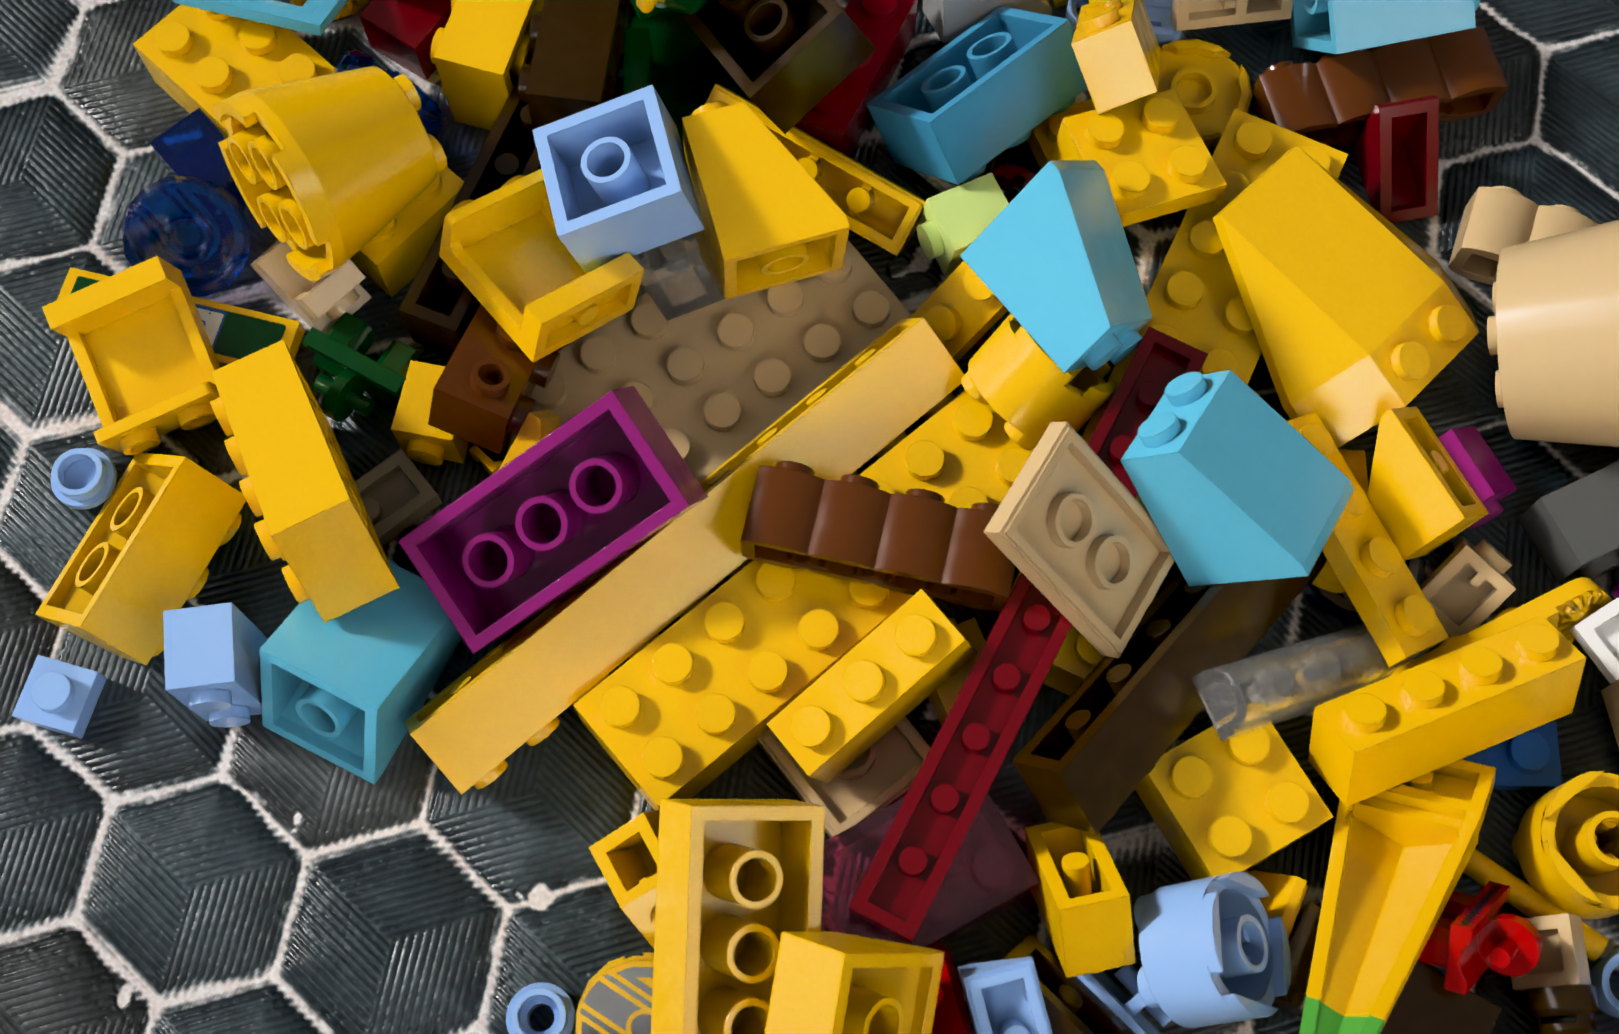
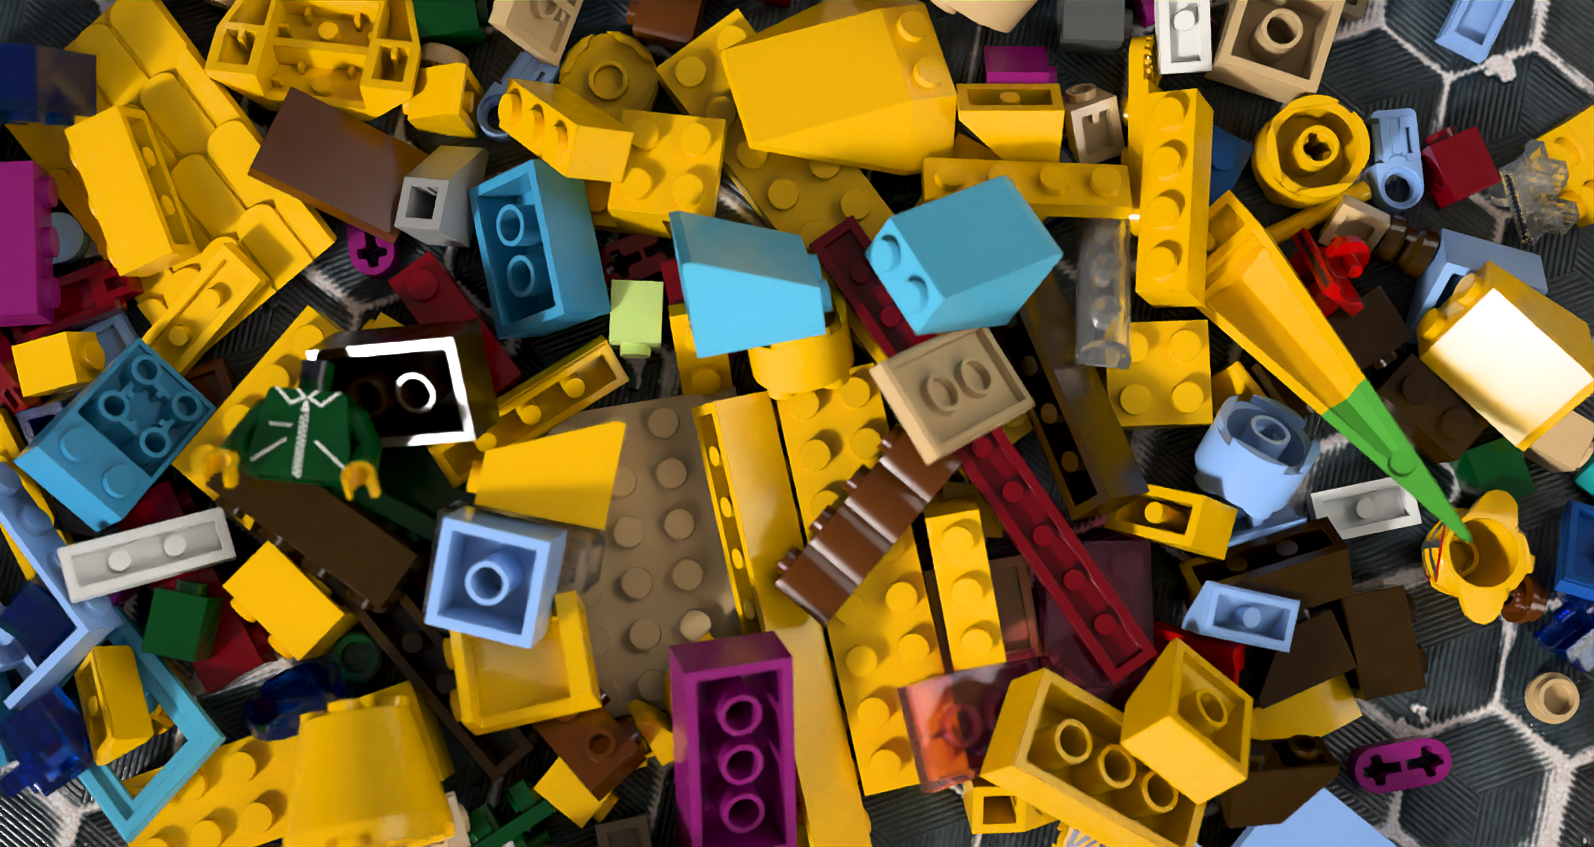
camera: 65 degrees left, 15 degrees up
(462, 143) = (358, 656): none -> dark green tile
(712, 748) = (955, 717): none -> tile

